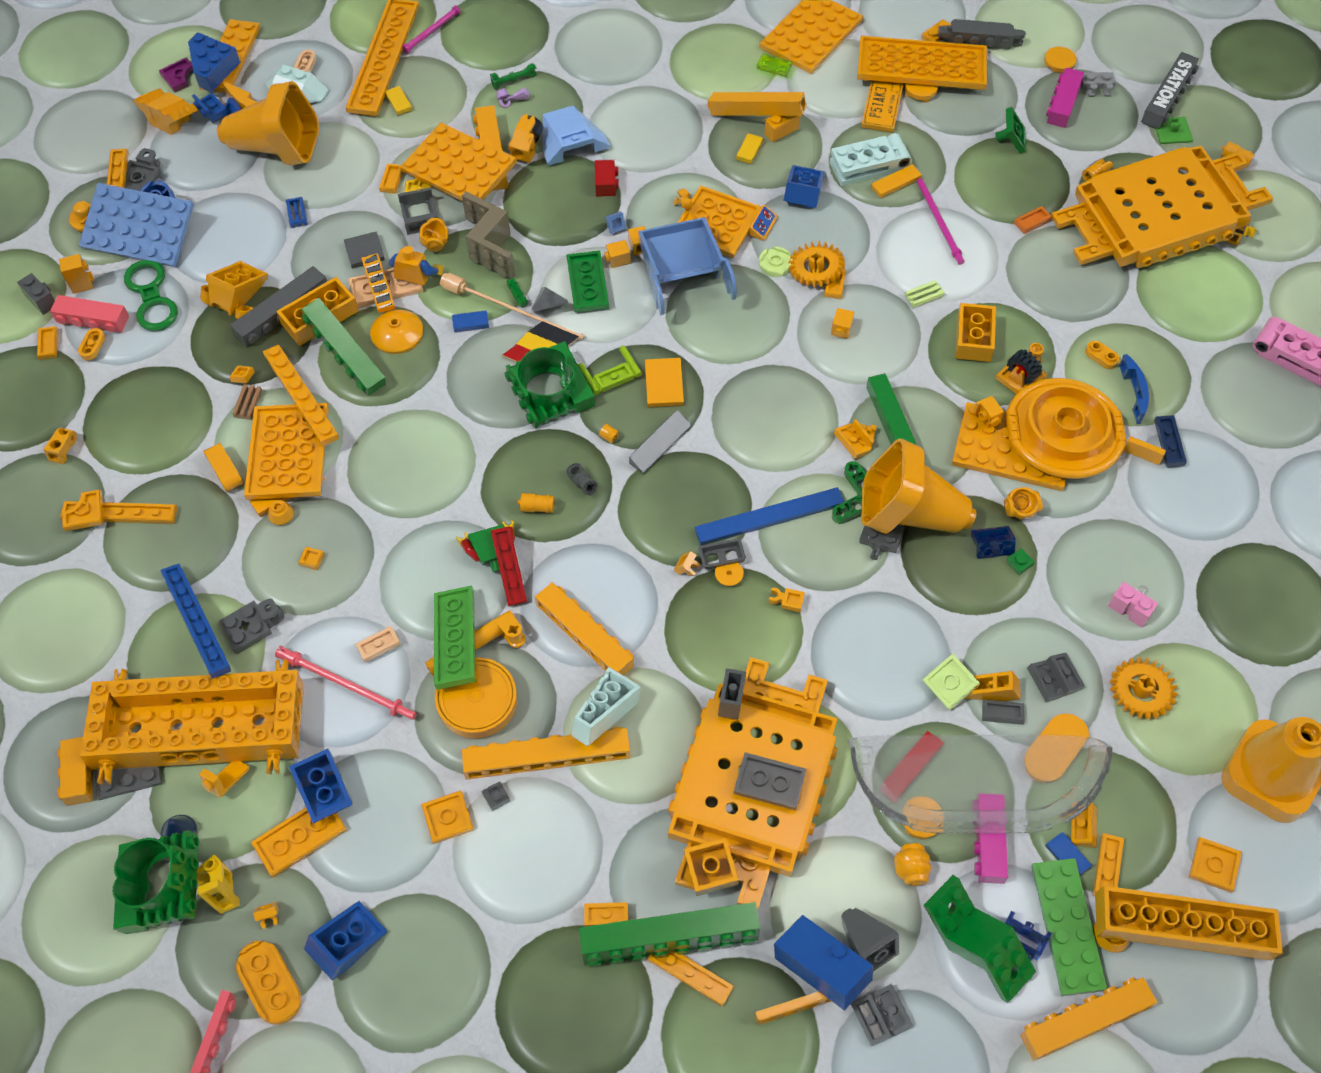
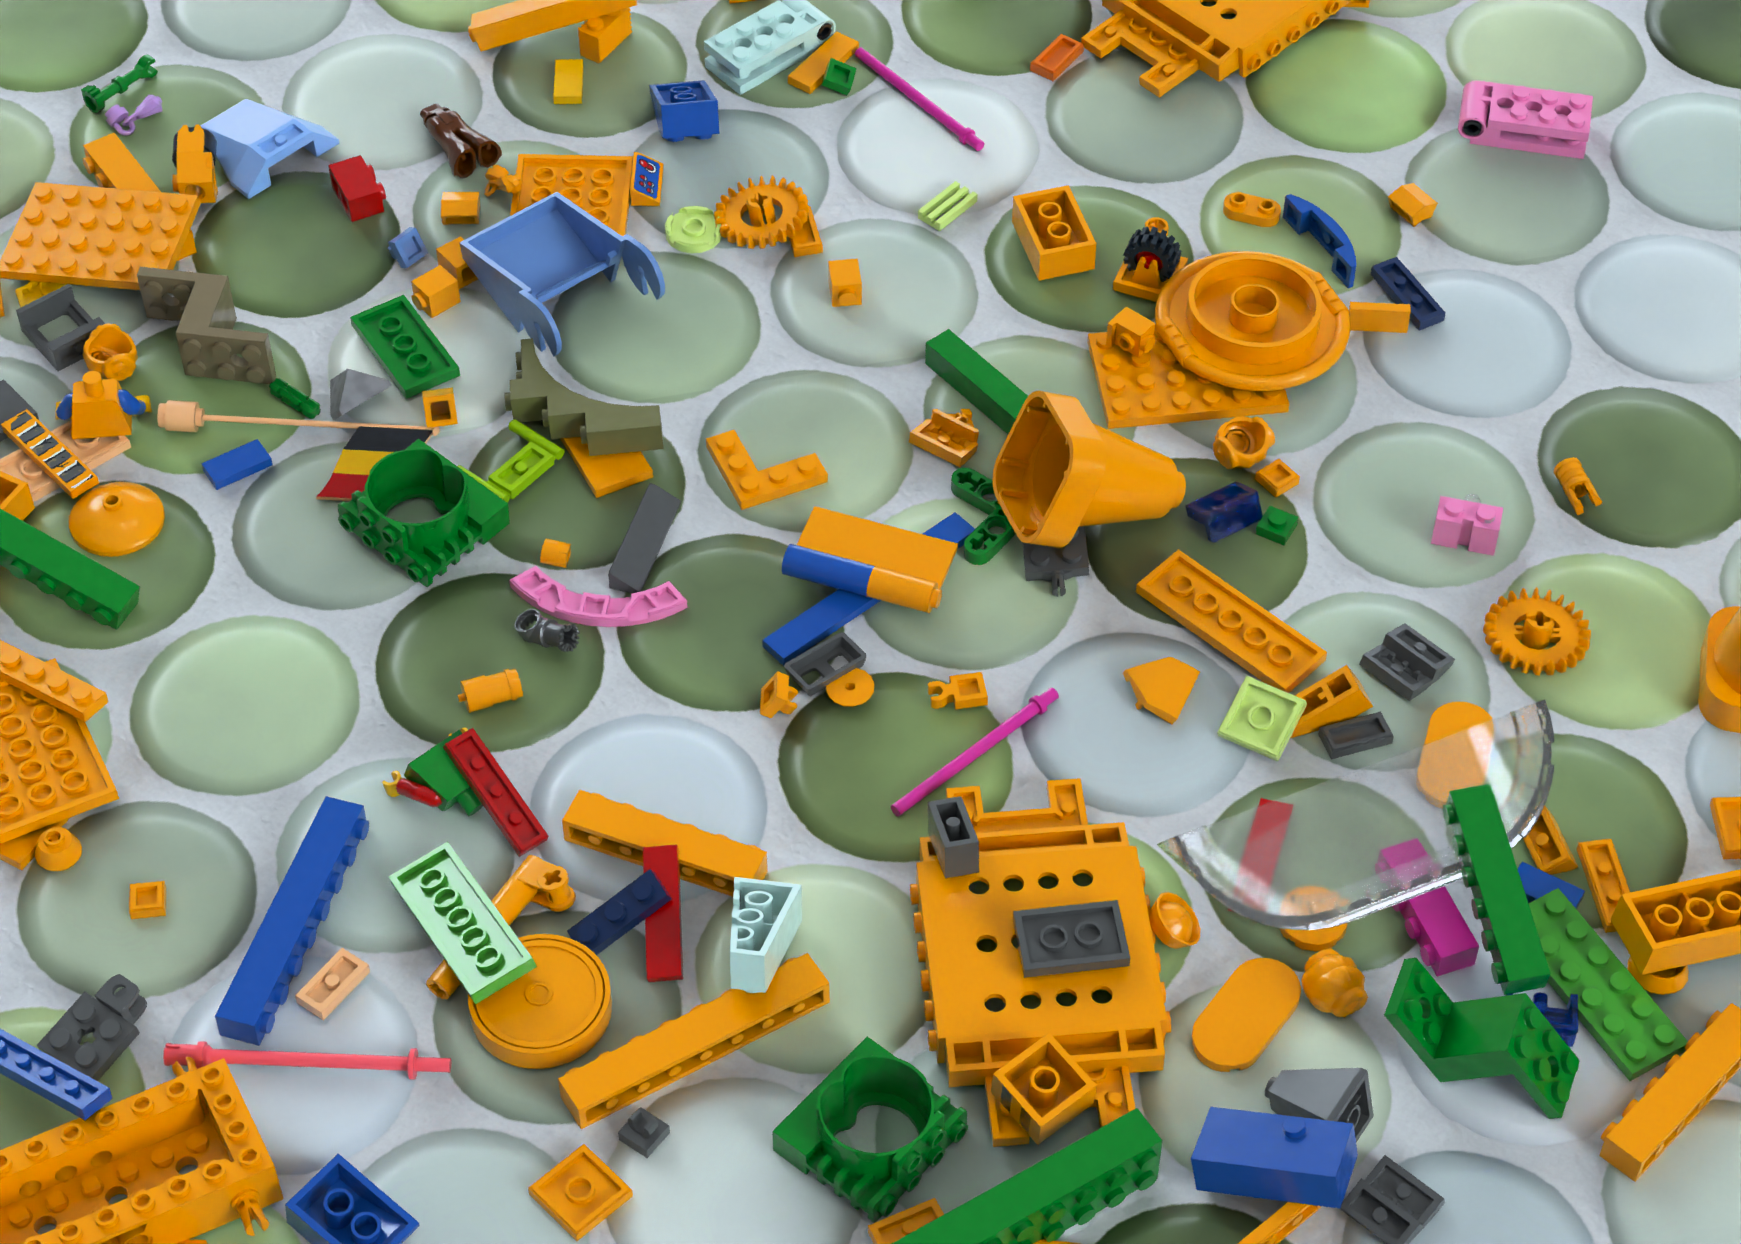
camera: 25 degrees left, 10 degrees down
(374, 599) = (292, 921): none -> blue brick
(539, 664) = (621, 913): none -> dark blue plate
(562, 672) = (664, 926): none -> red tile
(586, 325) = (439, 407): none -> light orange brick
(617, 475) = (596, 609): none -> bright pink tile
(623, 814) = (865, 1178): none -> green hose
(655, 207) = (460, 208): none -> light orange piece
(664, 366) = (600, 424): none -> olive arch
(671, 158) = (459, 141): none -> reddish brown piece
(736, 431) = (757, 487): none -> light orange plate
(775, 500) = (870, 559): none -> light orange door
(827, 623) = (1036, 705): none -> dark pink bar
(839, 789) = (1174, 921): none -> light orange hat
(855, 861) = (1246, 1014): none -> light orange tile
(899, 193) = (839, 76): none -> green plate
(904, 639) = (1162, 686): none -> light orange slope
(963, 614) = (1231, 622): none -> light orange plate
(1030, 851) = (1496, 890): none -> green brick
(1035, 531) = (1277, 478): none -> light orange tile
(1201, 383) = (1412, 203): none -> light orange piece
(1214, 600) = (1576, 483): none -> light orange hinge

